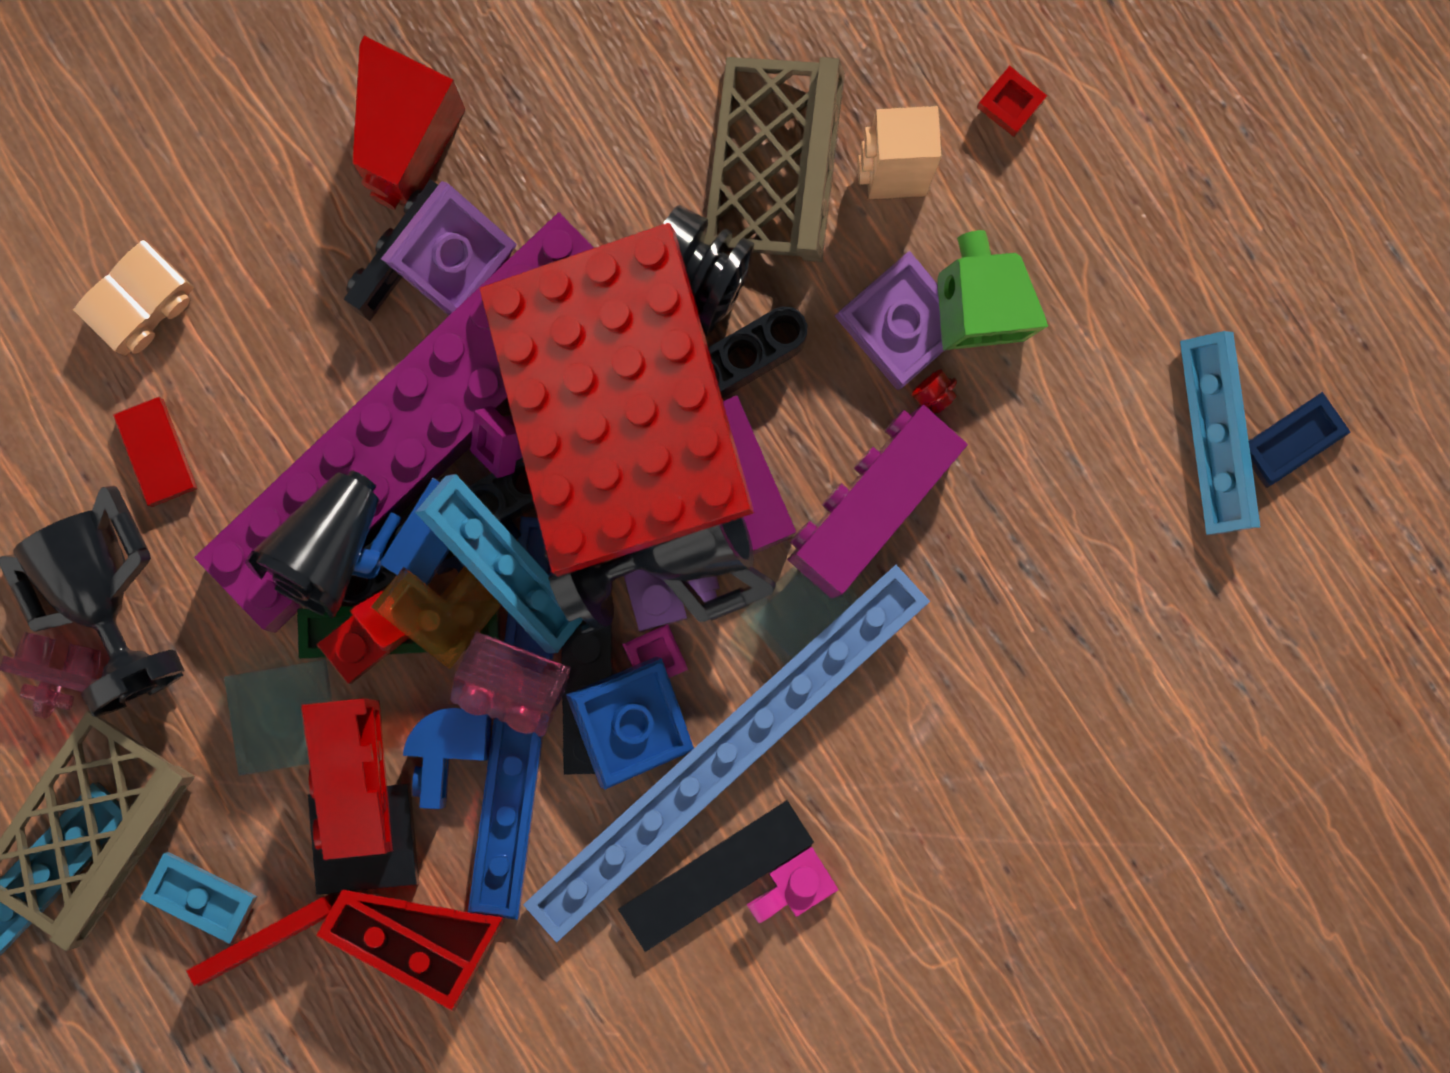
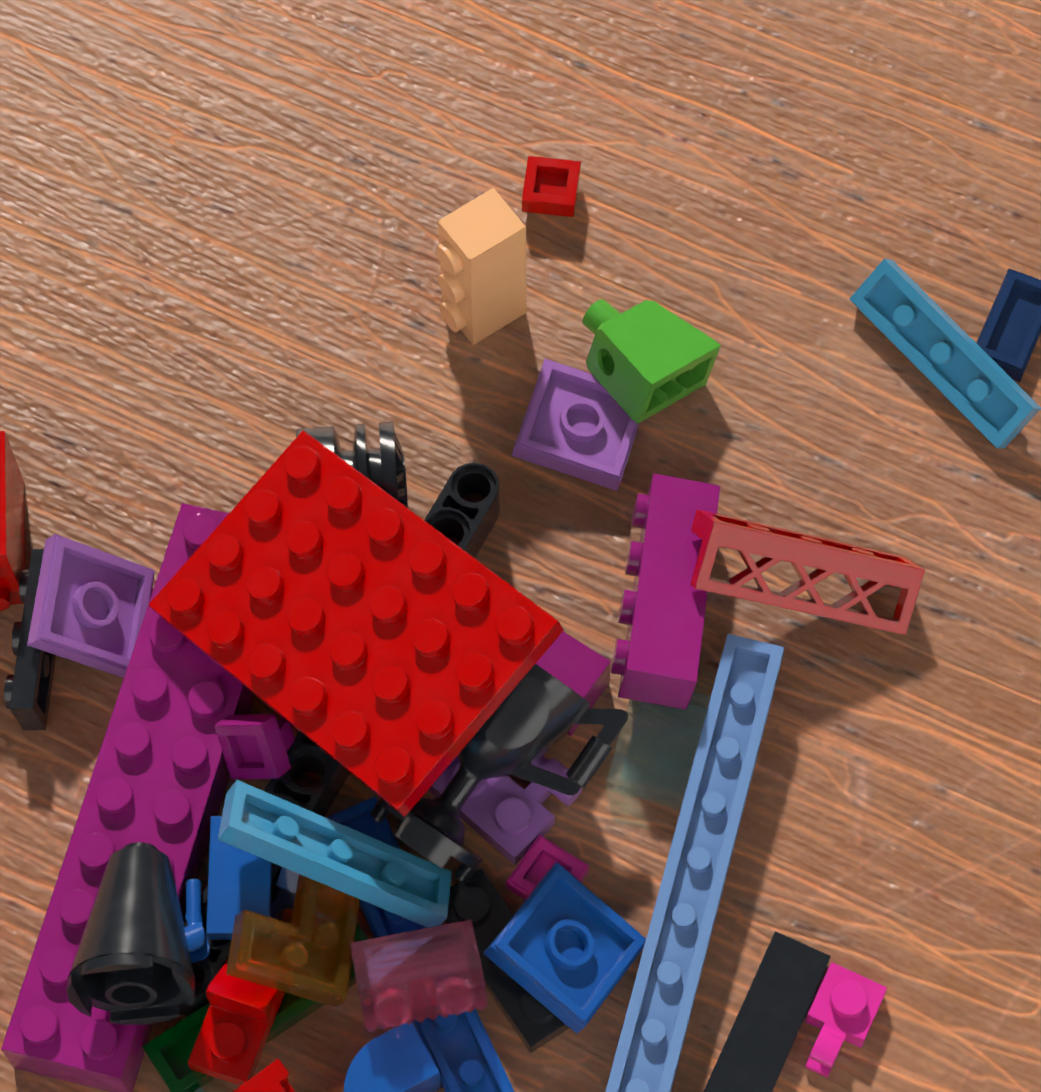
camera: 30 degrees left, 20 degrees down
(816, 151) = (393, 320): dark tan fence -> none
(935, 391) = (653, 461): red plate -> none
(997, 538) = (810, 551): none -> red fence

